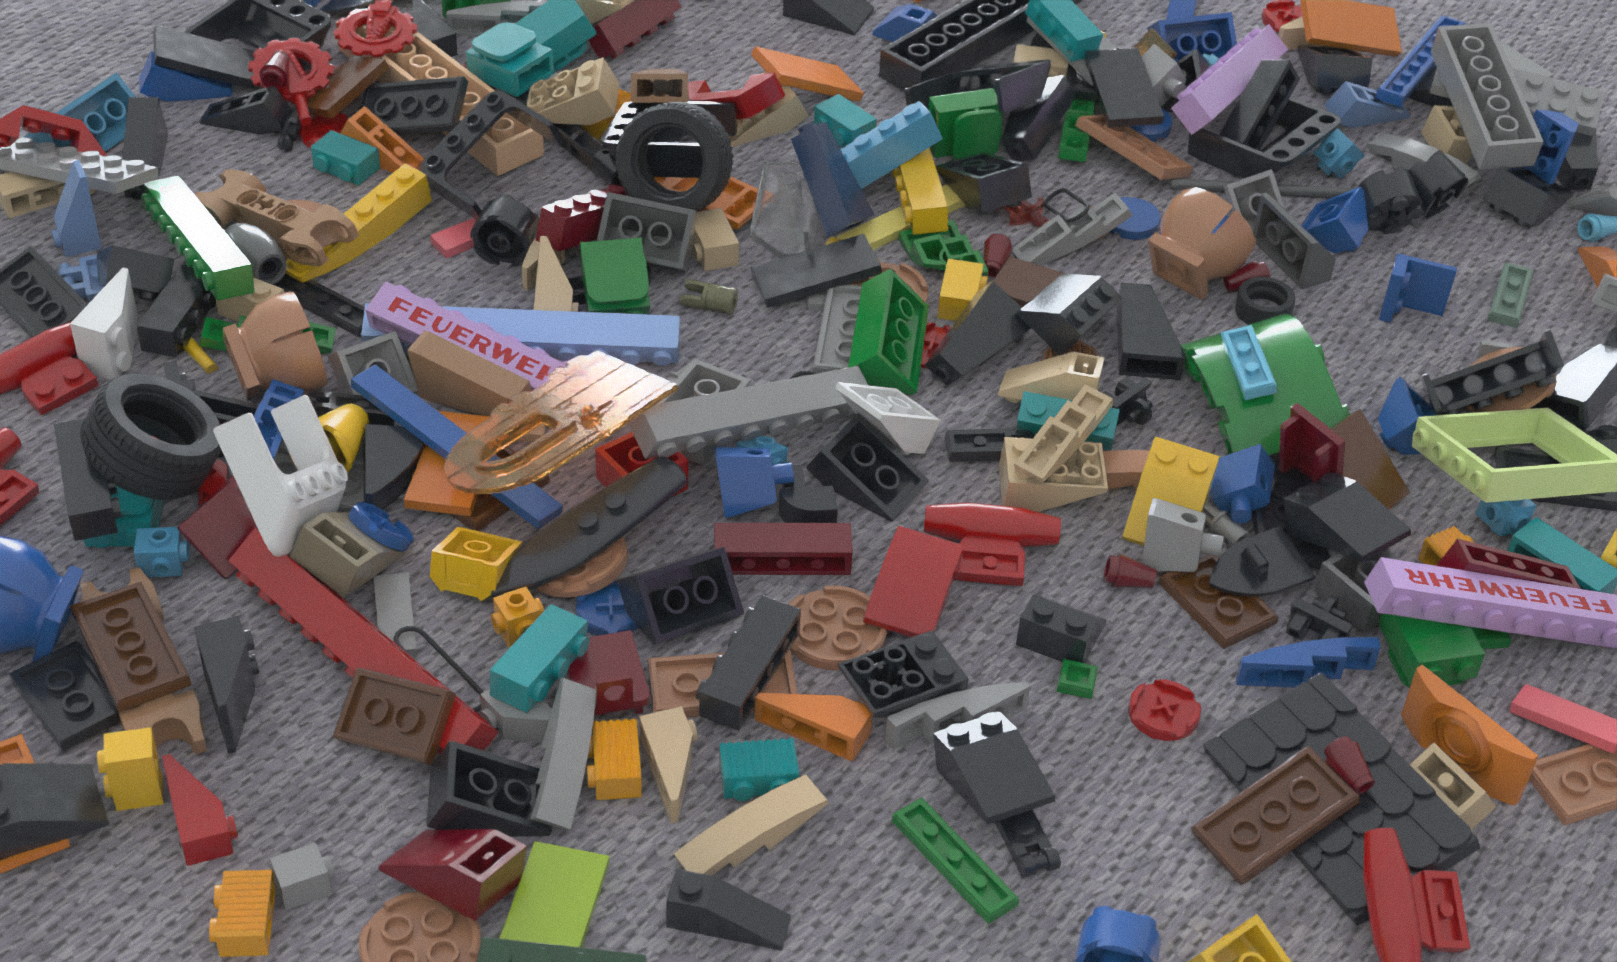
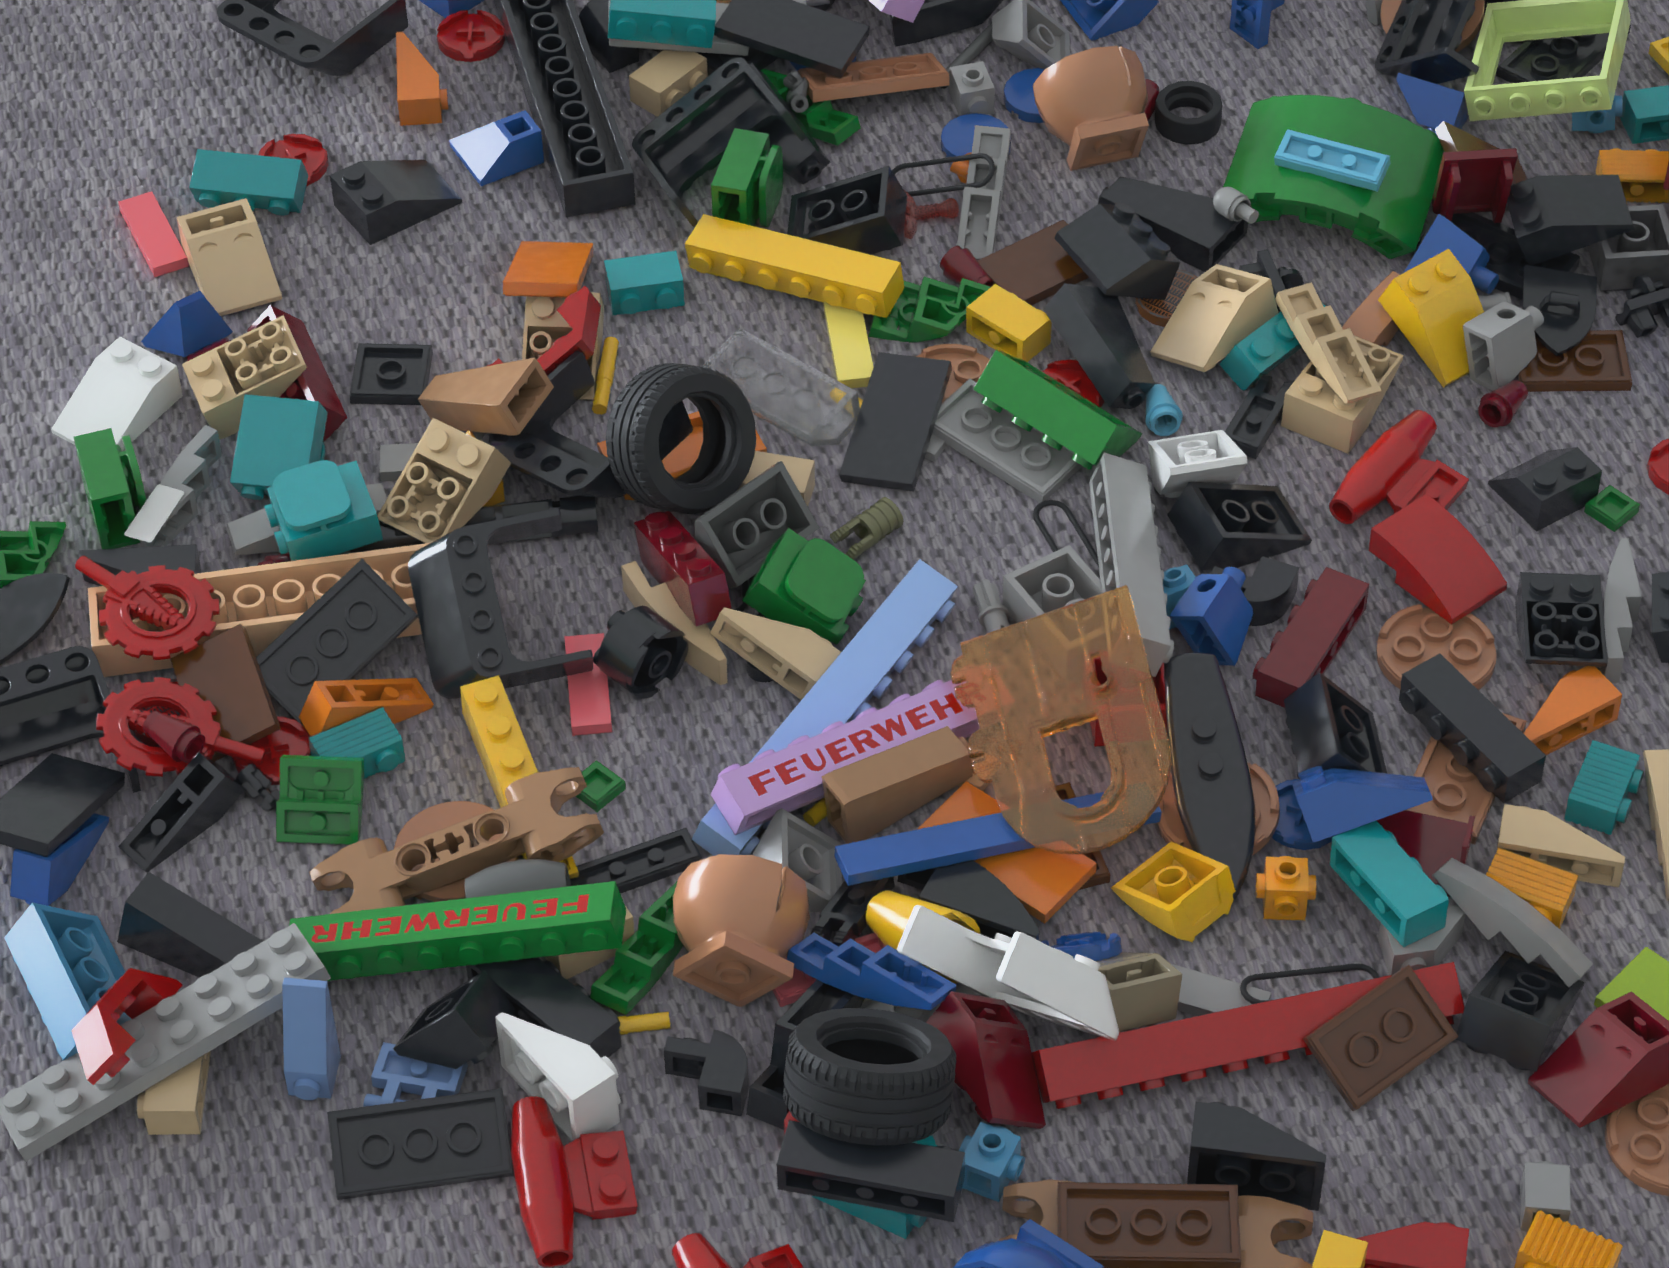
camera: 55 degrees left, 5 degrees up
(292, 158) = (320, 799): none -> green slope
(391, 266) = (601, 786): none -> green tile
(467, 9) = (154, 513): none -> white sticker
(601, 601) = (1347, 799): none -> blue slope
(678, 55) = (390, 373): none -> black tile
(759, 140) = (605, 375): none -> yellow piece
(830, 179) = (790, 333): dark blue slope -> none
(891, 143) = (750, 267): dark azure slope -> none
(947, 394) = (1162, 411): none -> medium azure cone
(1071, 117) = (797, 91): none -> dark grey arm
(1168, 188) = (971, 89): none -> light grey brick
(1171, 344) = (1234, 205): none -> light grey cylinder
(1291, 245) = (1150, 39): dark grey slope -> none

